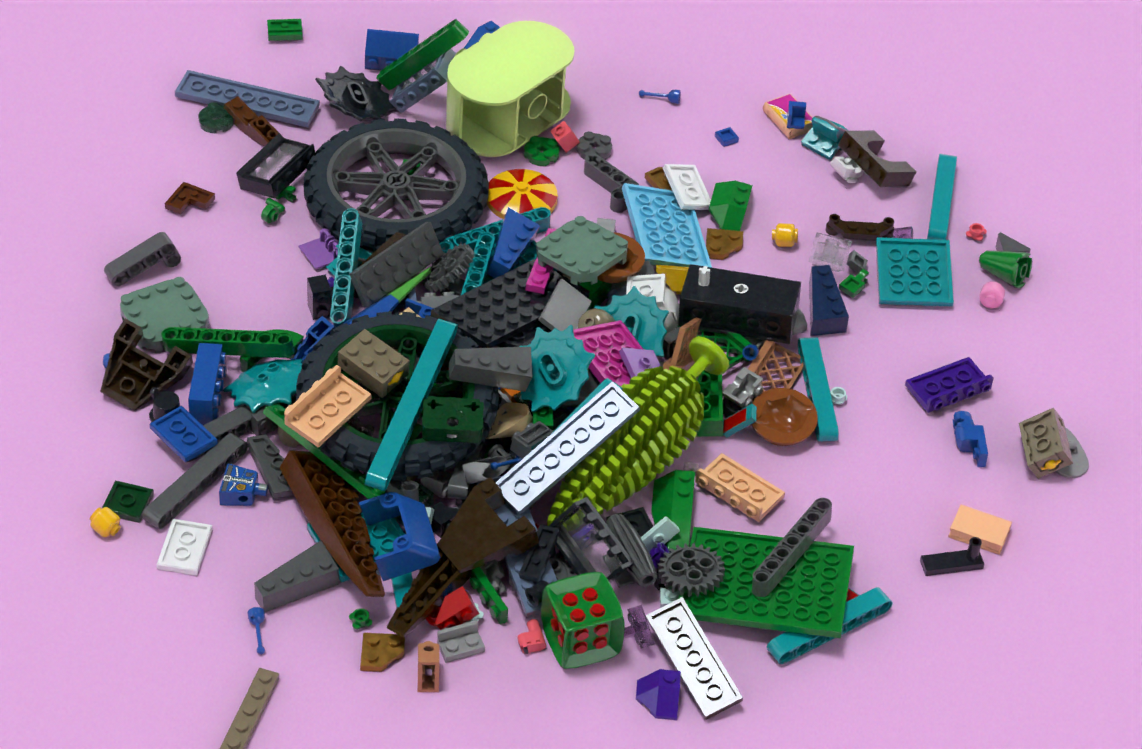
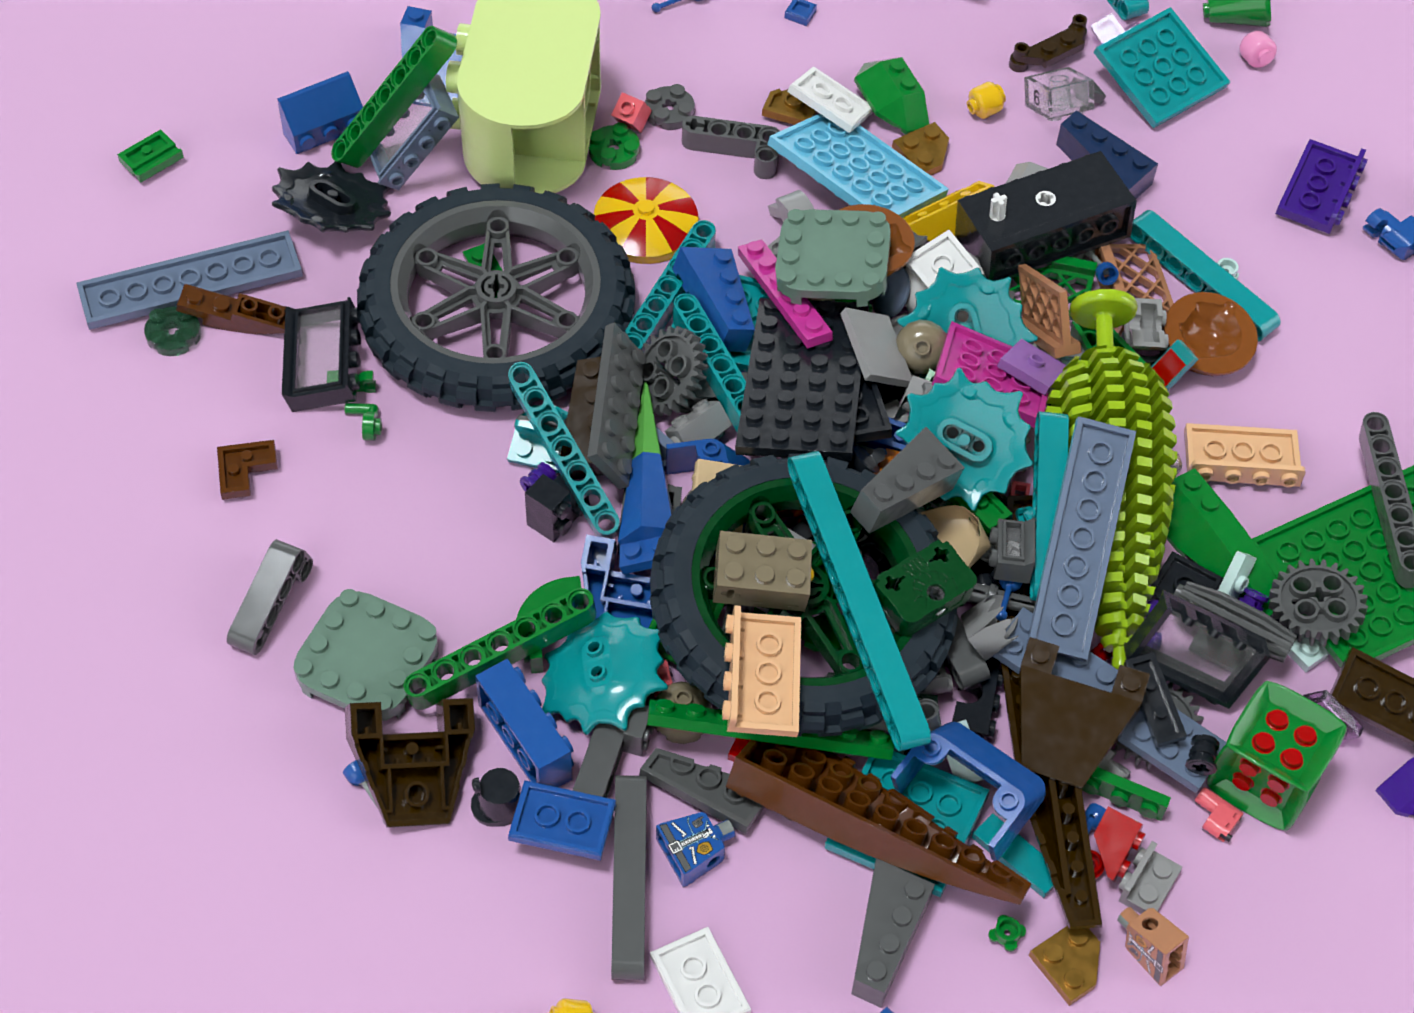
camera: 35 degrees left, 10 degrees up
(128, 500) = (566, 966): dark green tile -> none
(321, 250) = (481, 437): medium lavender hinge -> none
(854, 284) = (1111, 118): green plate -> none

